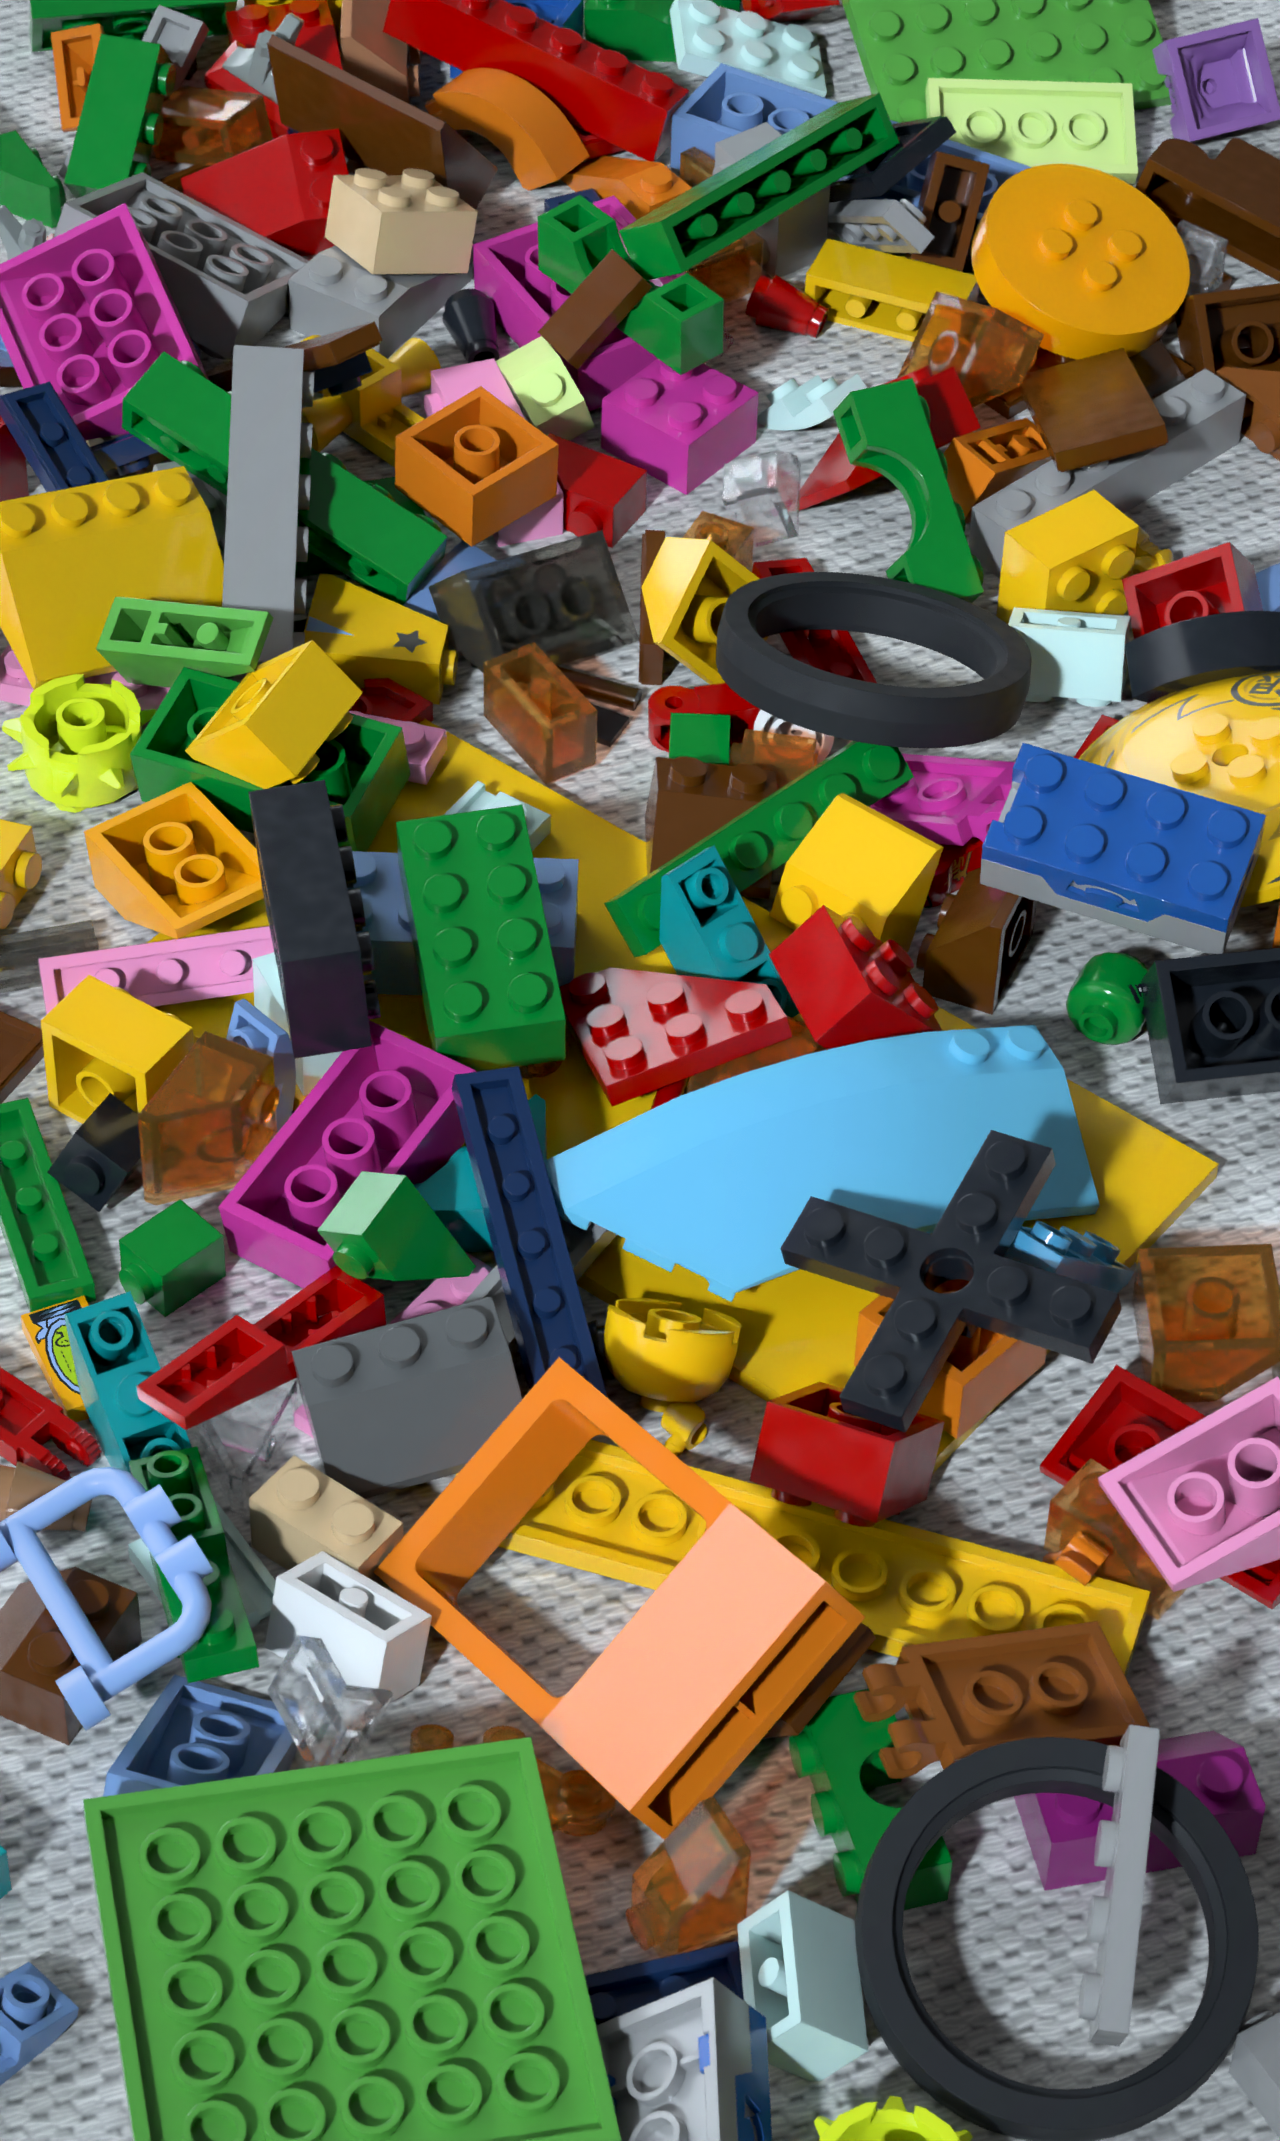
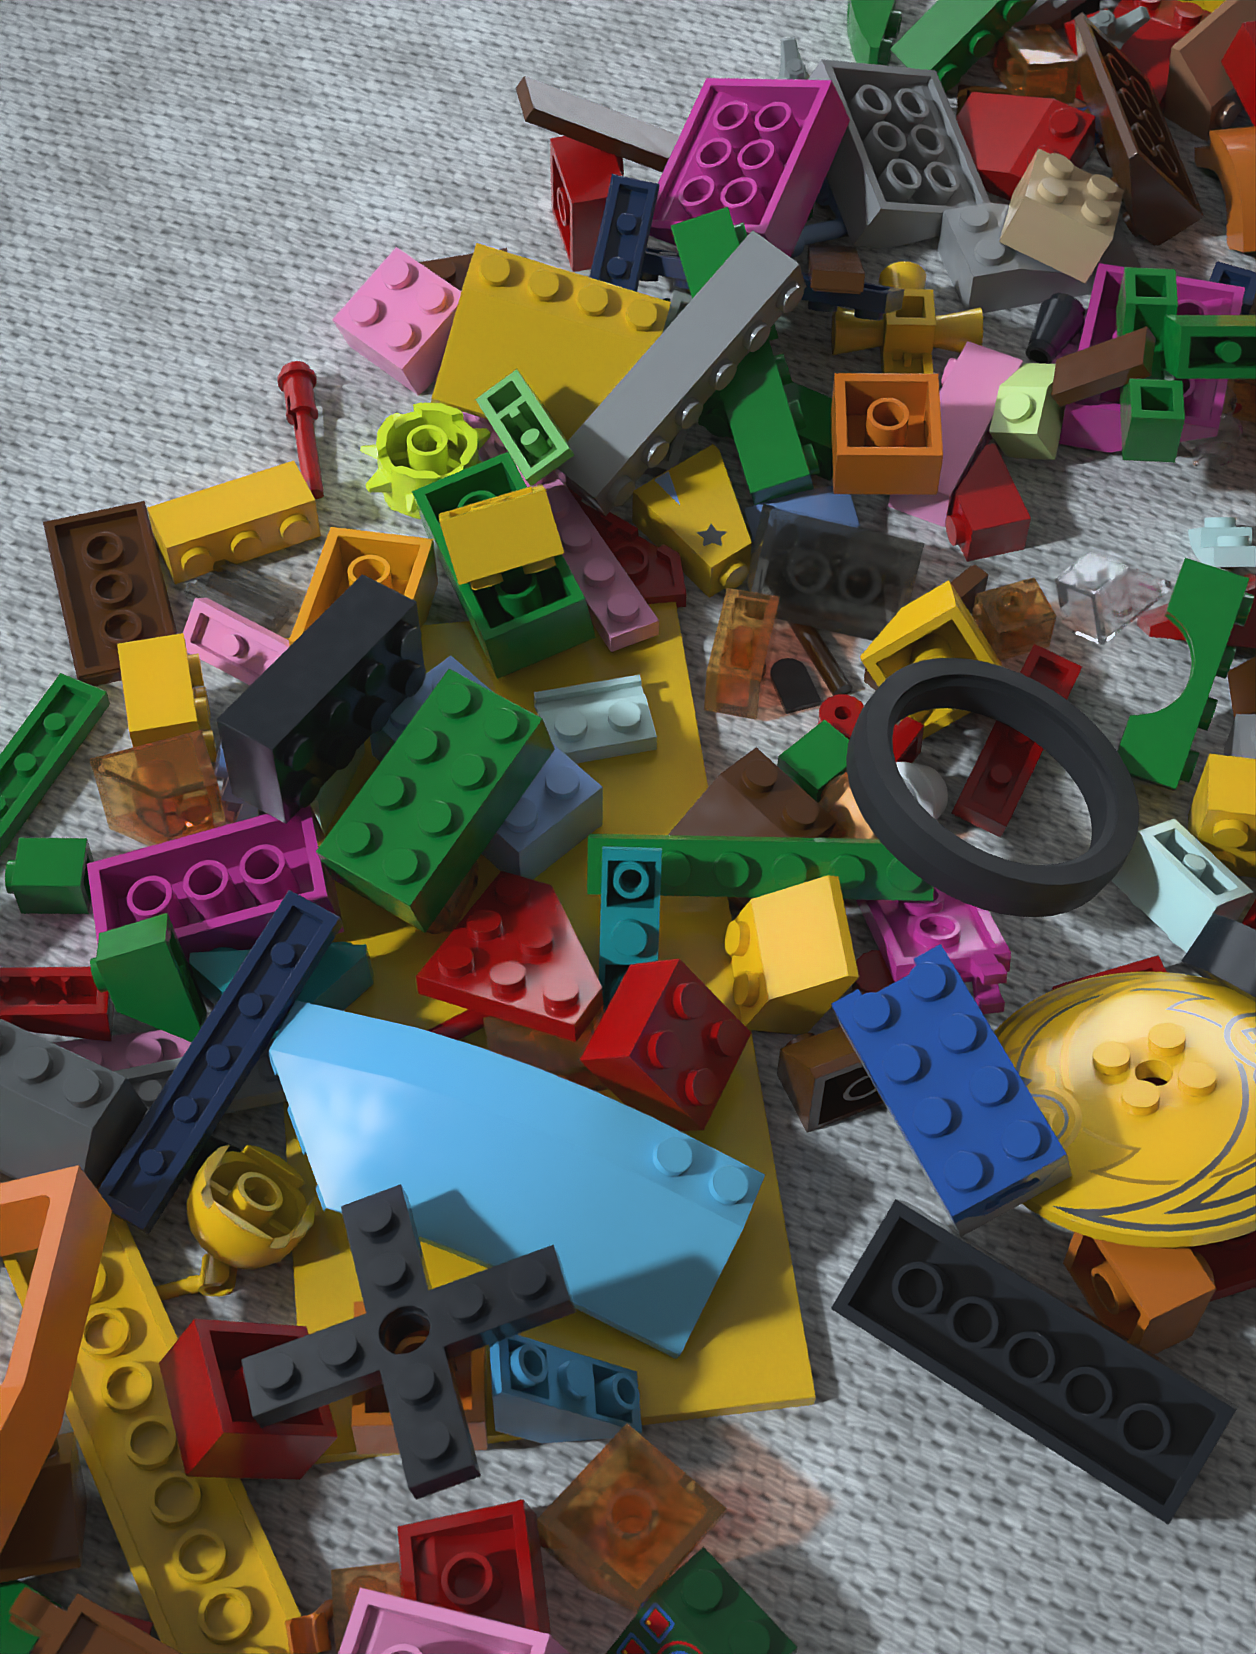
camera: 45 degrees right, 10 degrees up
(100, 1153) = (71, 766): black brick -> none
(679, 423) = (1111, 501): dark pink brick -> none
(1109, 998) = (876, 1185): green head -> none

